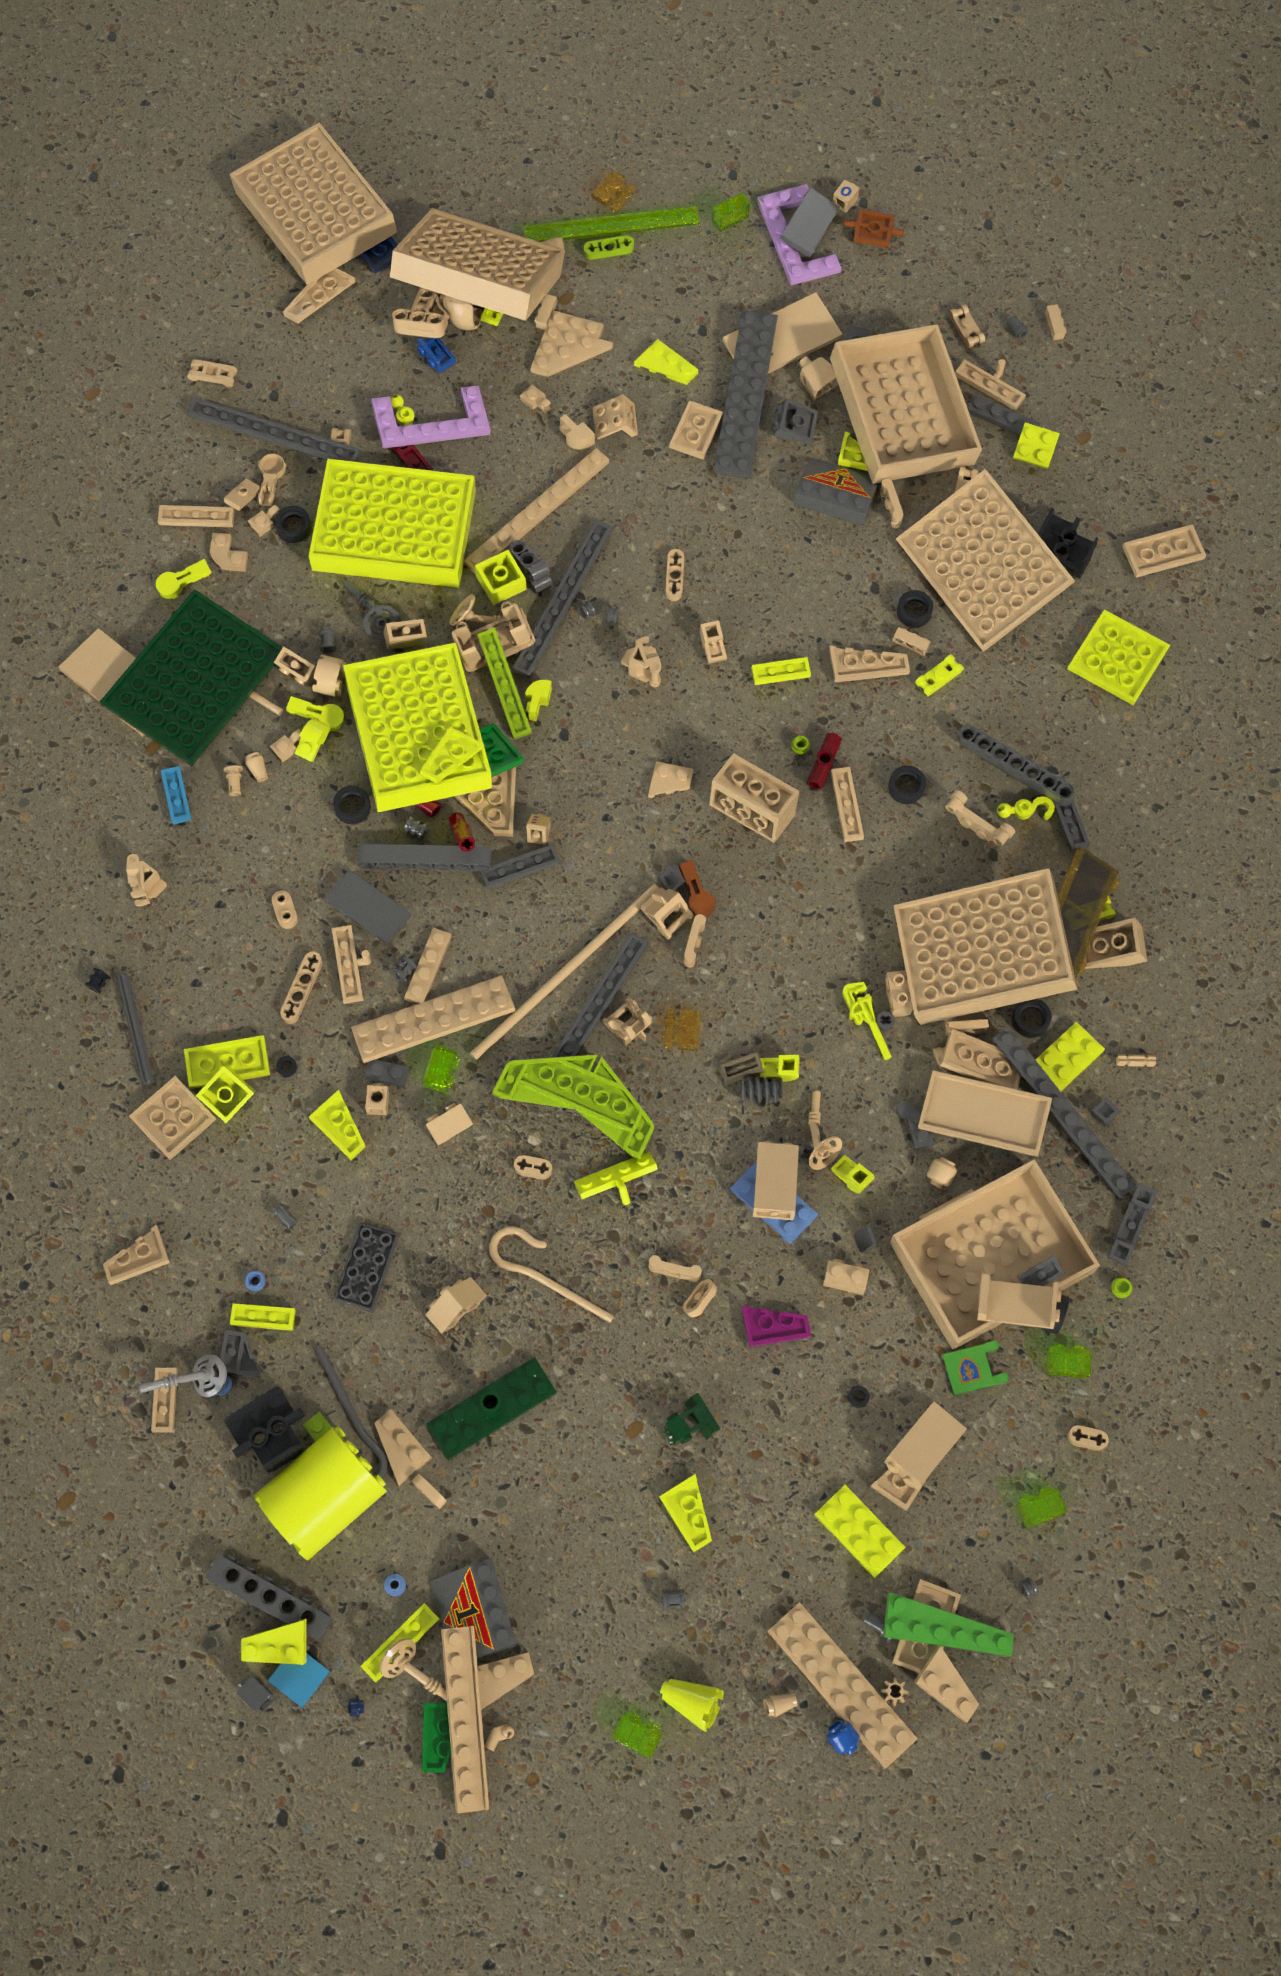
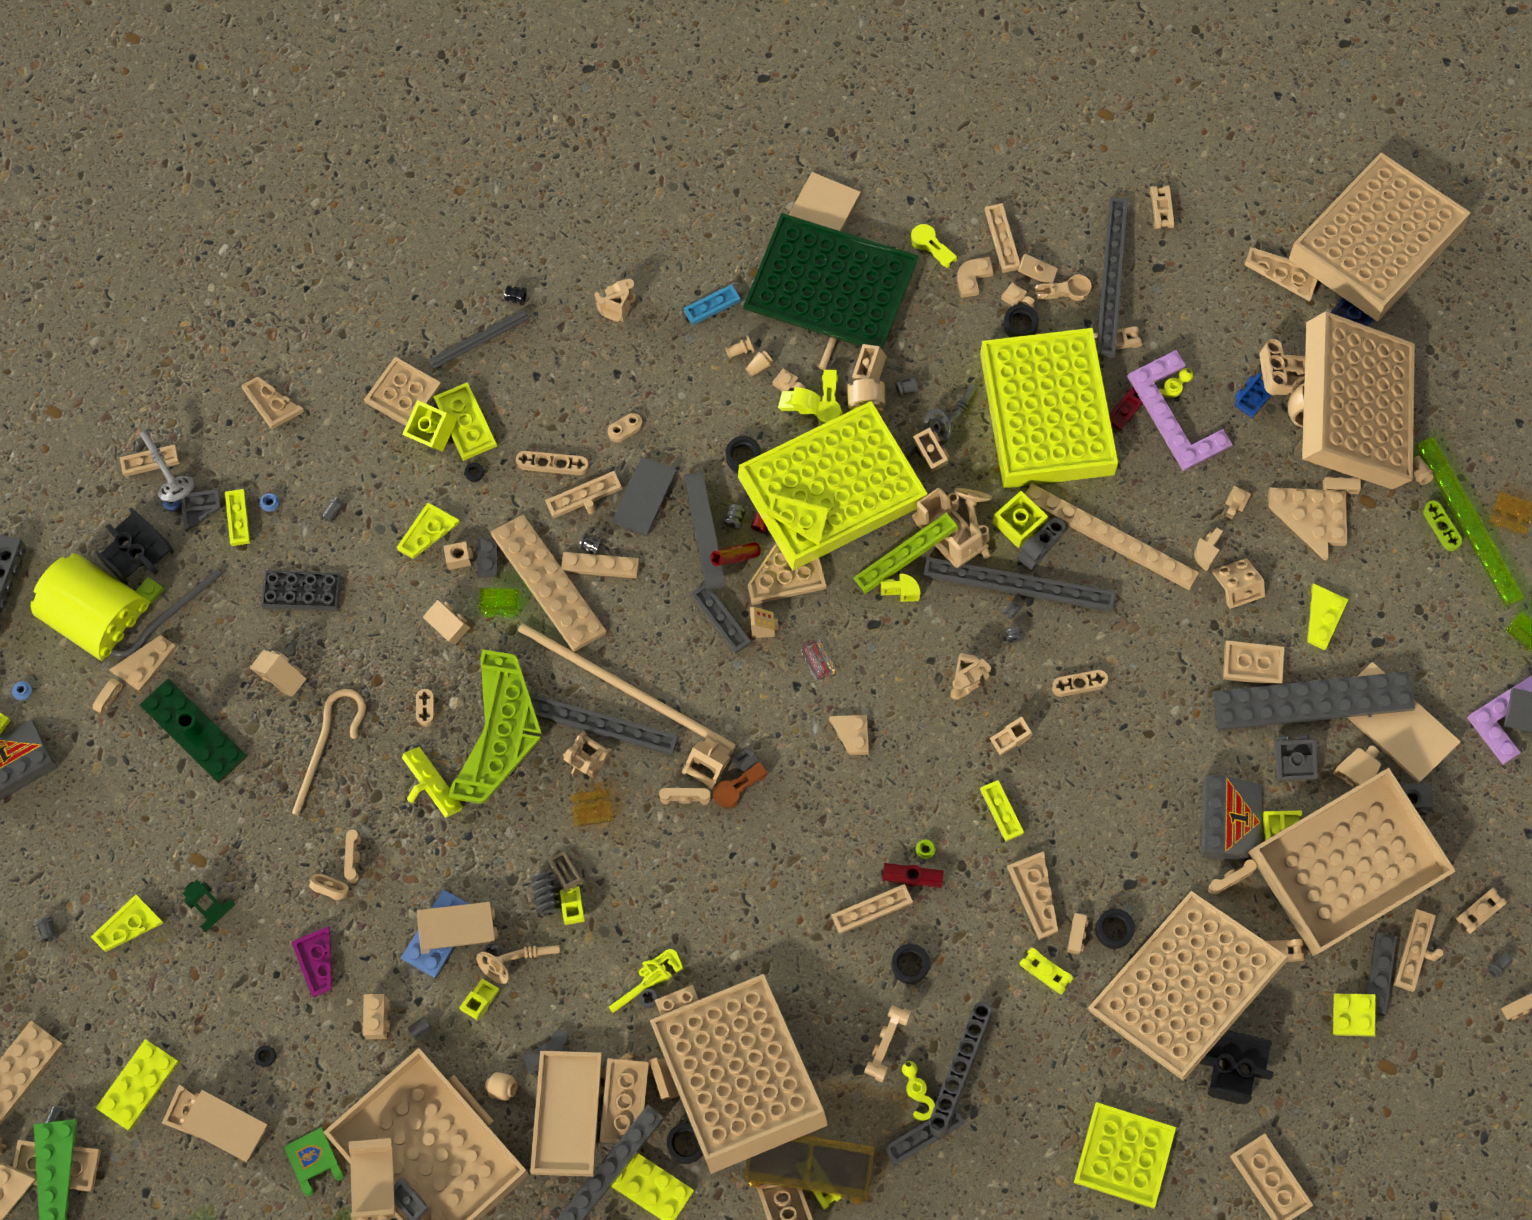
camera: 80 degrees right, 0 degrees up
(499, 750) = (832, 566): green wing -> none
(586, 791) = (818, 659): none -> clear slope
(753, 797) = (844, 812): tan brick -> none

